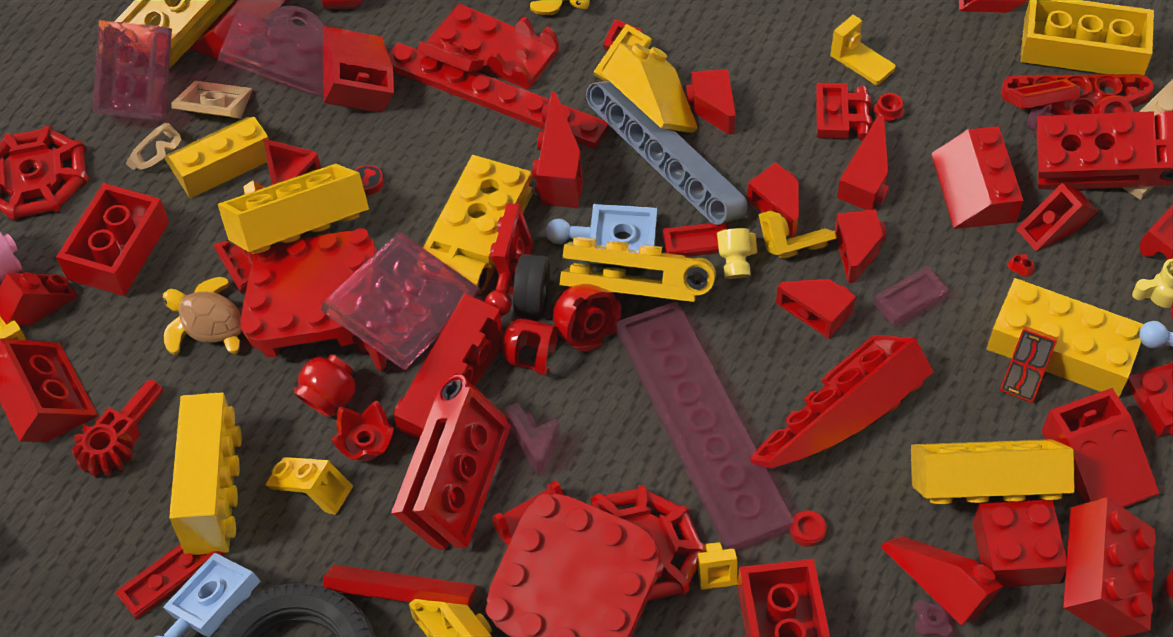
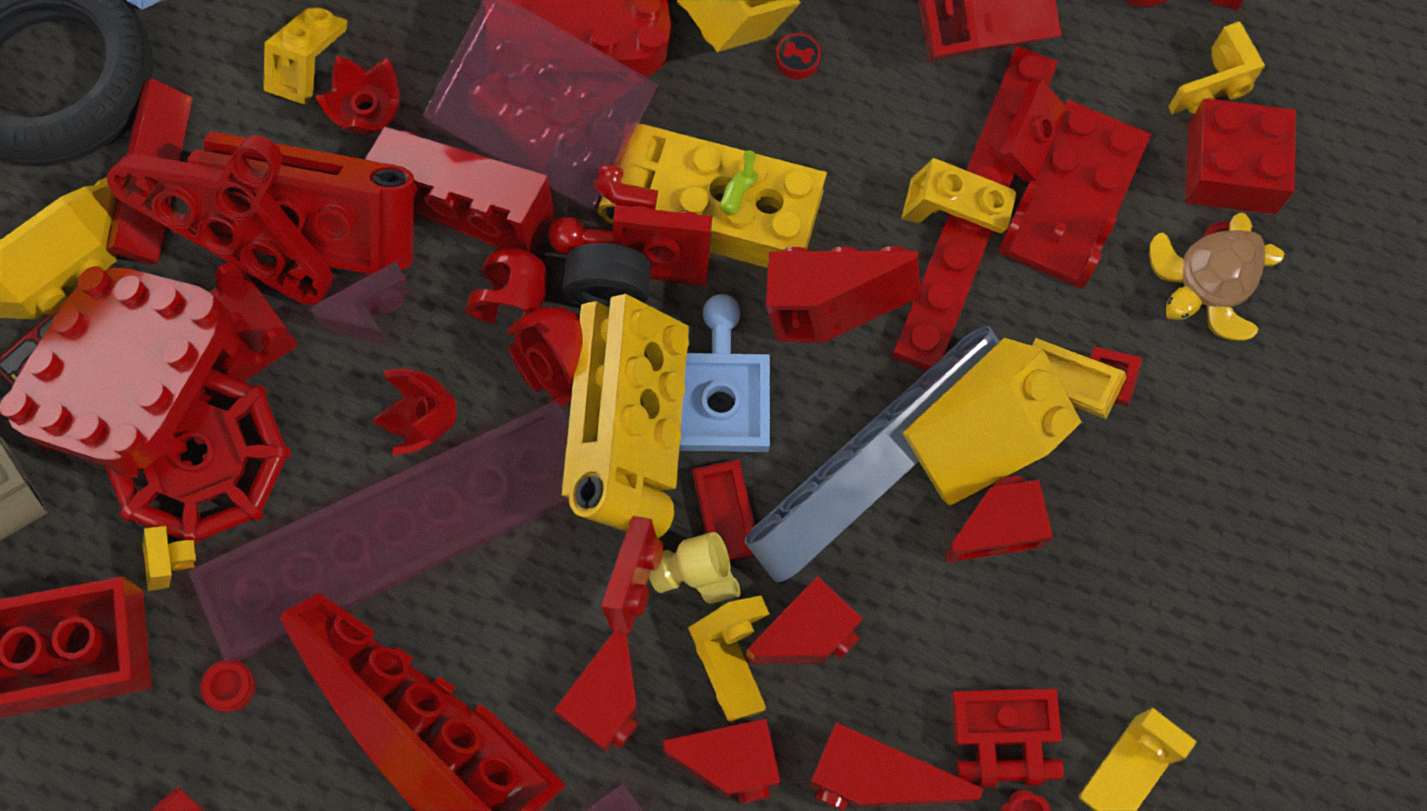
camera: 80 degrees right, 15 degrees up
(325, 384) = (428, 40): red piece -> none
(451, 507) = (208, 201): none -> red beam
(479, 259) = (611, 187): none -> red arm
(481, 196) = (739, 185): none -> lime piece
(489, 100) = (958, 193): none -> yellow bracket
(619, 415) = (421, 414): none -> red piece
(746, 271) = (627, 588): none -> red plate

